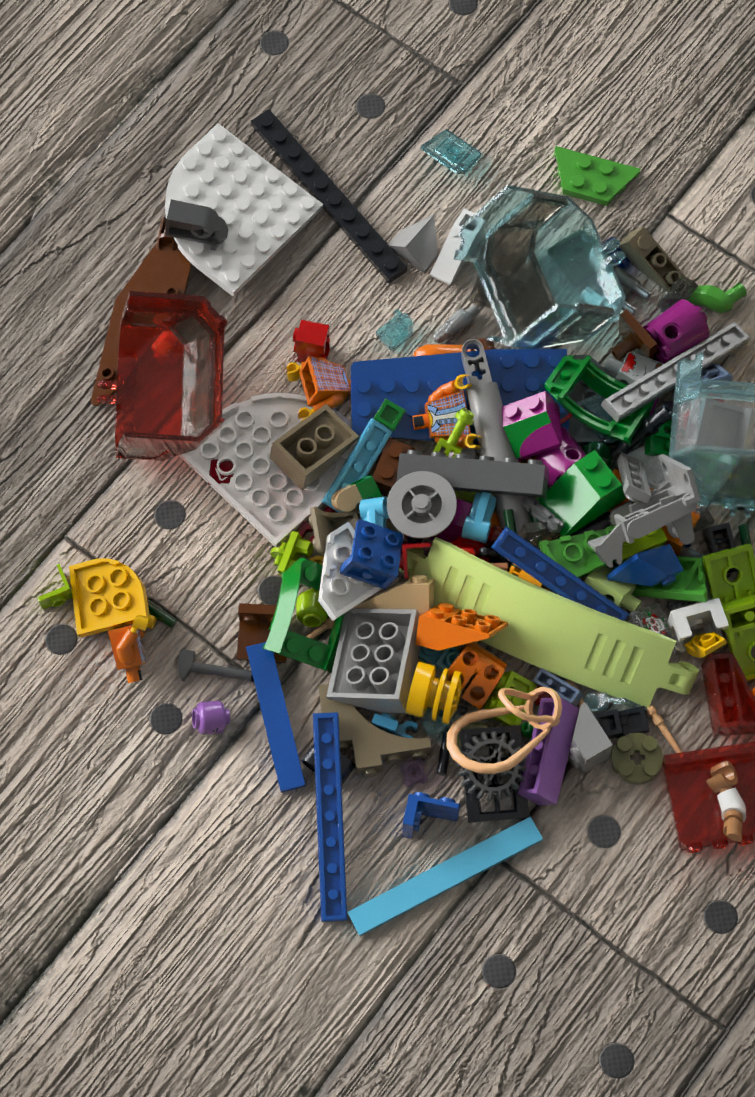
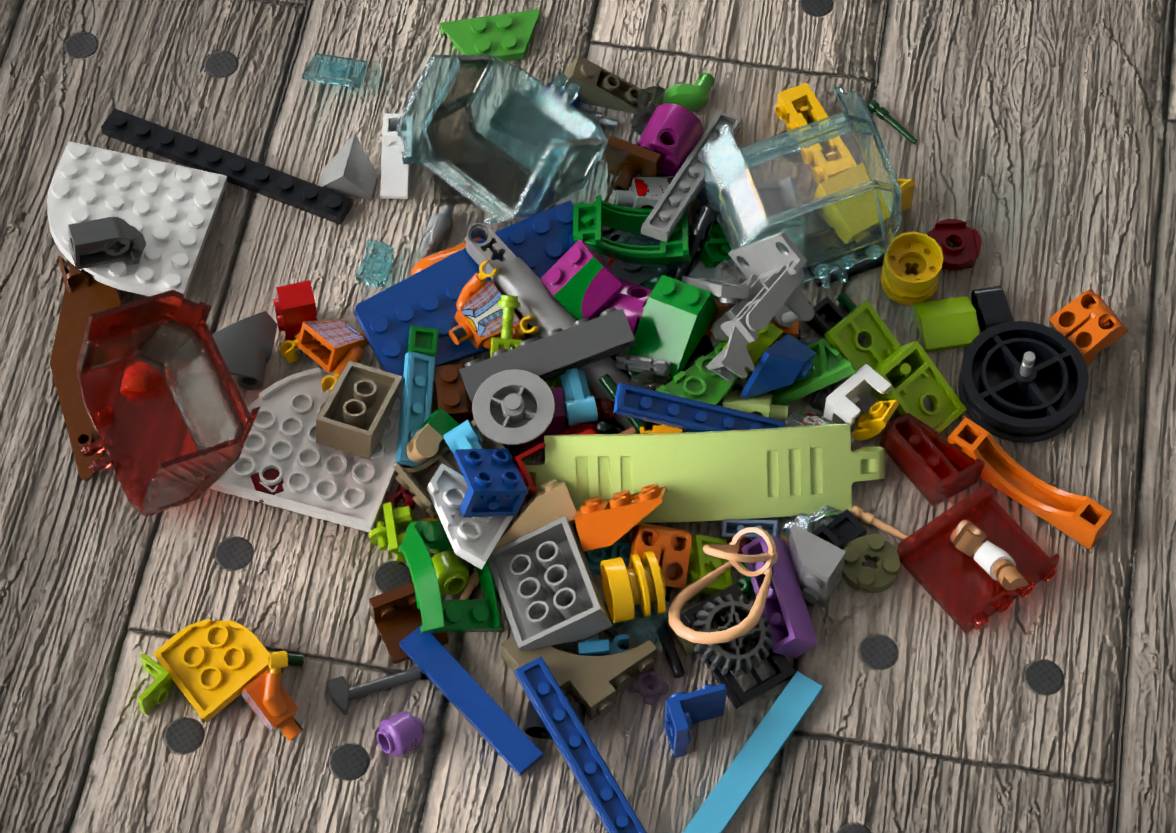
camera: 30 degrees left, 10 degrees down
(255, 355) = (247, 348): none -> dark grey panel

